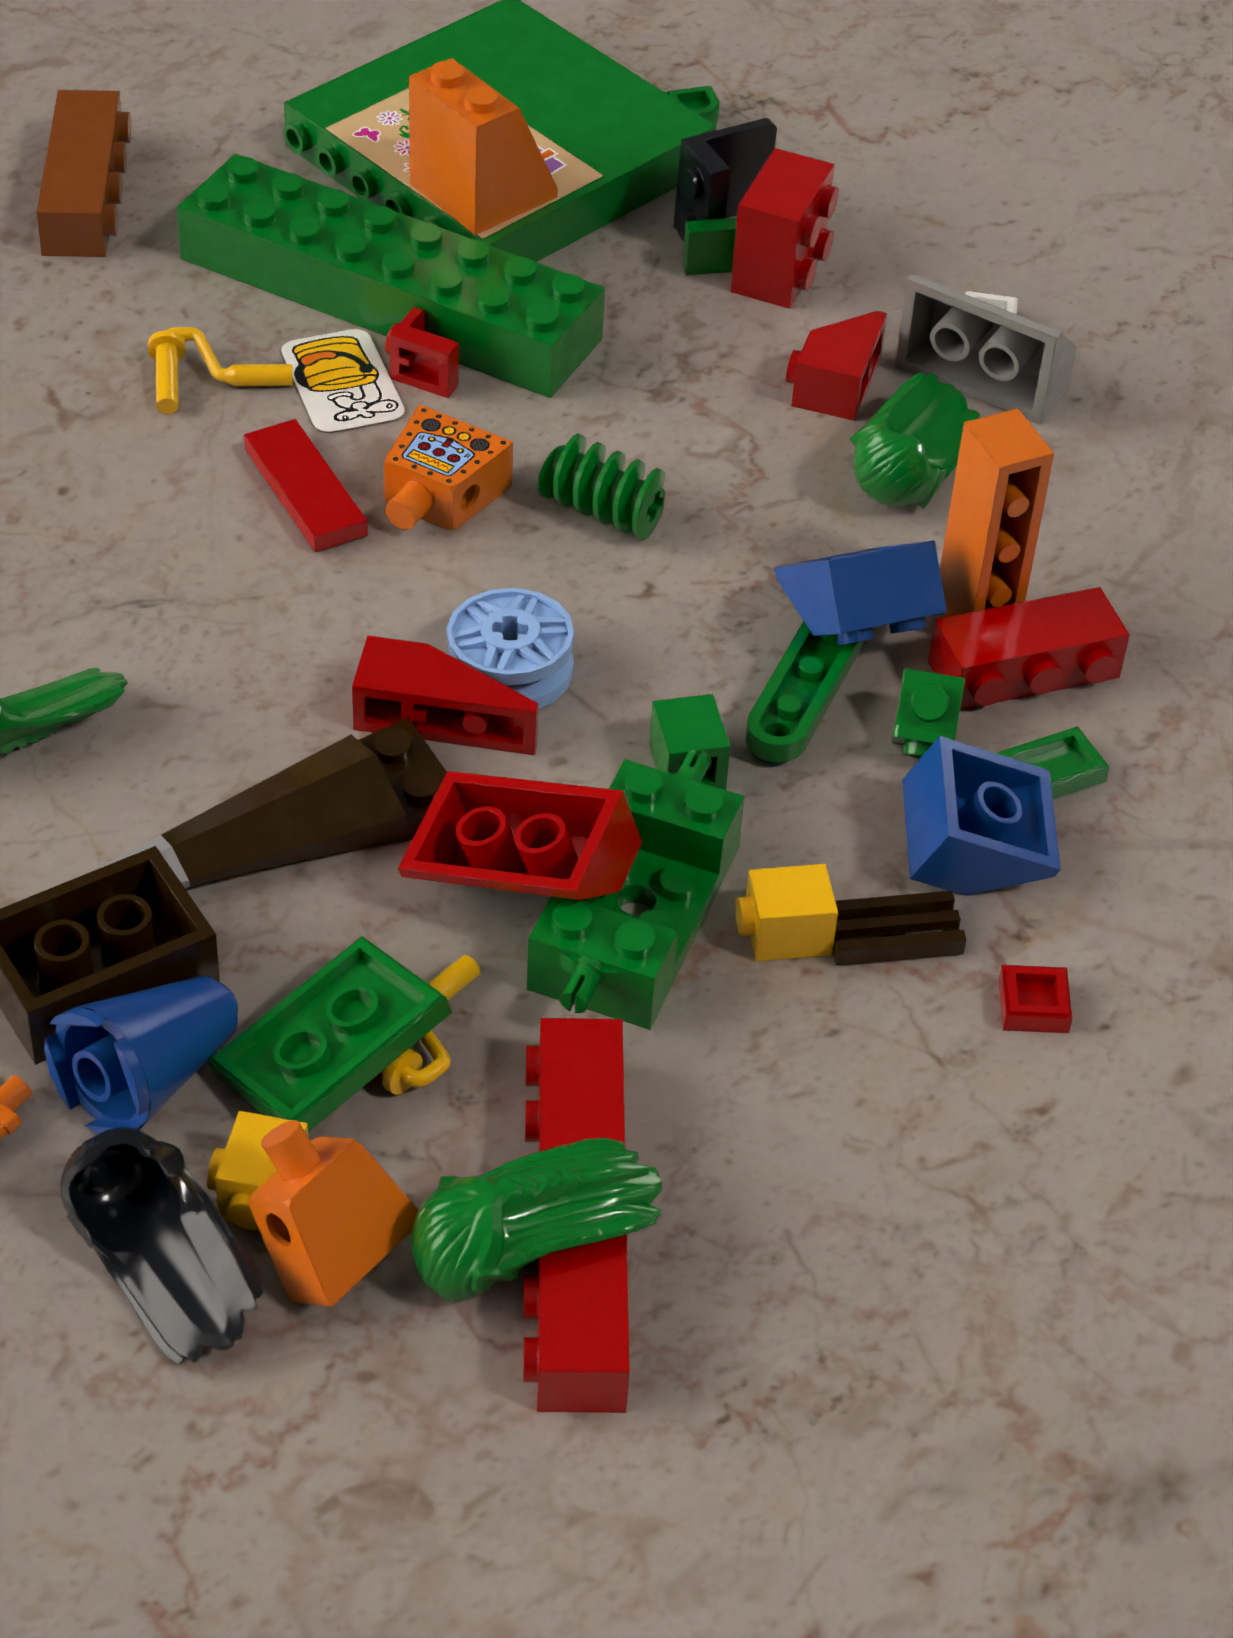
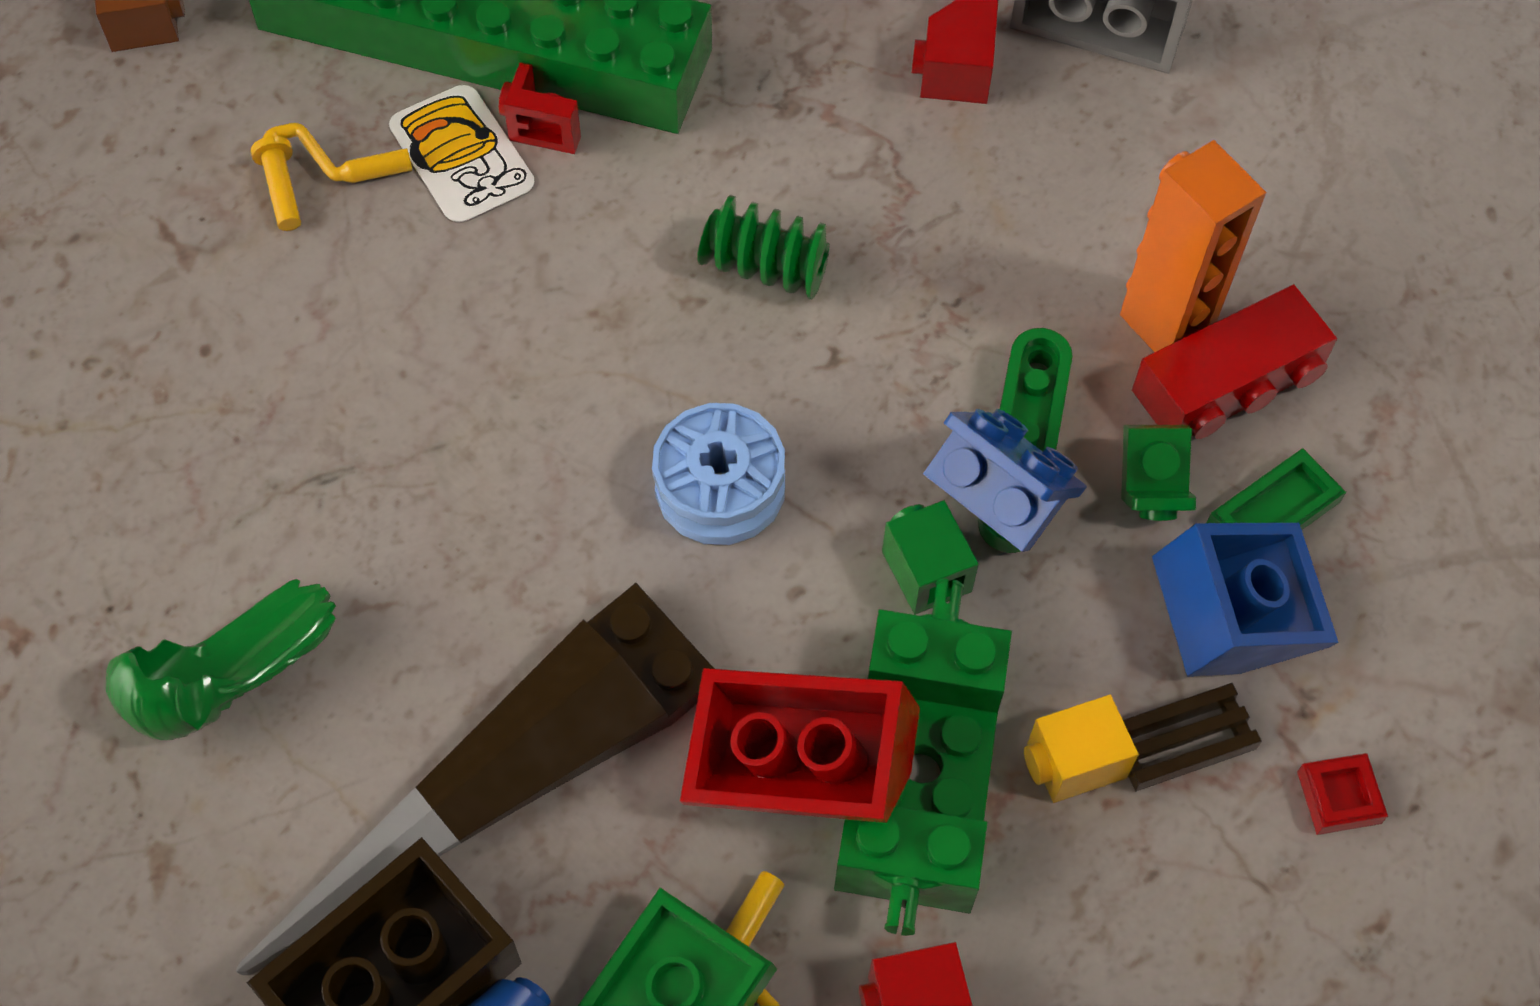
camera: 10 degrees left, 15 degrees up
(305, 485) = (457, 298): red tile -> none
(440, 698) = (660, 550): red slope -> none
(444, 471) = (595, 258): orange torso -> none
(772, 679) = (1003, 475): none -> bracket
(866, 590) = (1065, 335): blue slope -> none
(911, 442) = (1060, 130): green hair -> none

